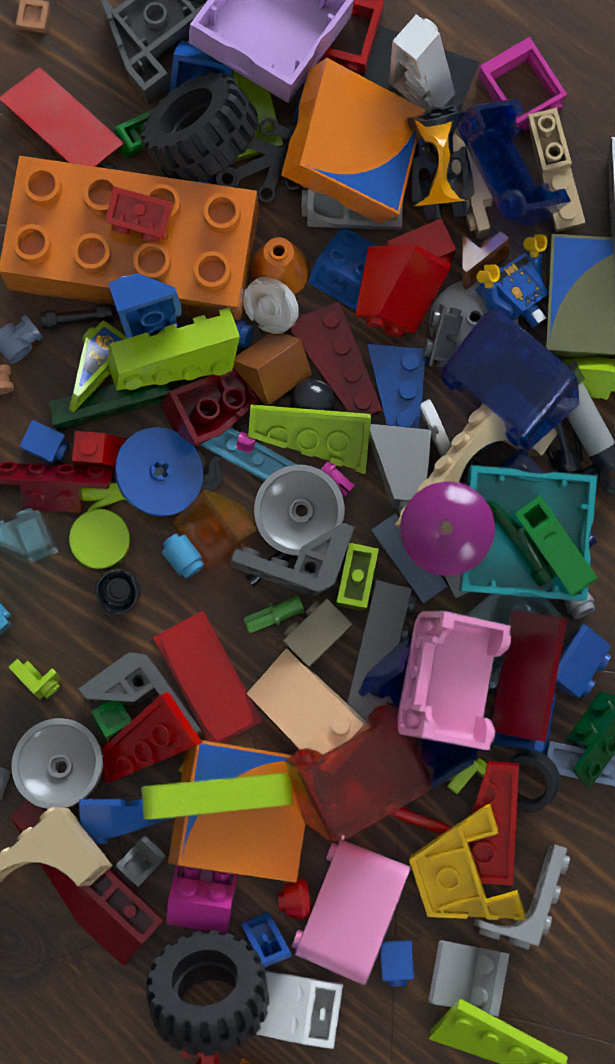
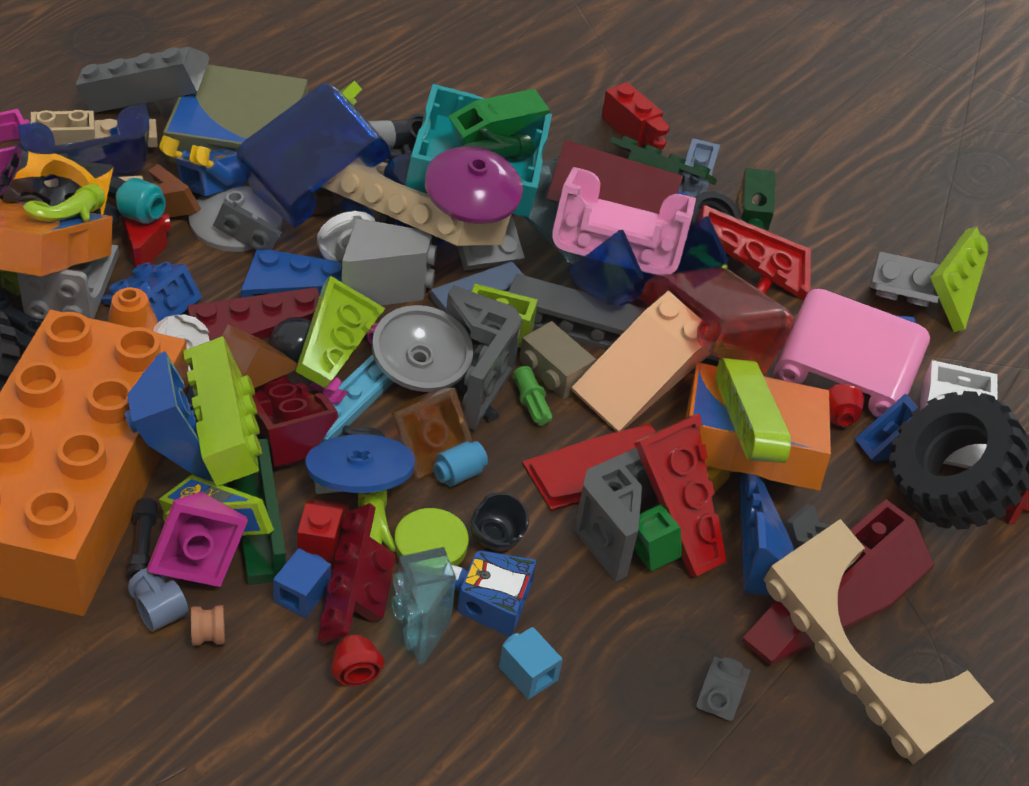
camera: 95 degrees left, 35 degrees down
(35, 682) = (606, 605): lime bracket -> none
(44, 750) = (714, 576): light grey dish -> none
(53, 591) = (494, 589): none -> torso
(54, 356) = (198, 540): none -> dark pink slope
(139, 213) = (50, 392): red bracket -> none
(201, 899) = (851, 484): dark pink slope -> none
(399, 287) = (183, 237): red slope -> none
(411, 188) = (82, 203): none -> lime plant
(435, 232) = (140, 201): none -> teal head
(450, 877) = (797, 276): yellow wing -> none
(546, 893) = (825, 224): light grey bracket -> none
(570, 827) = (753, 183): none -> dark green torso

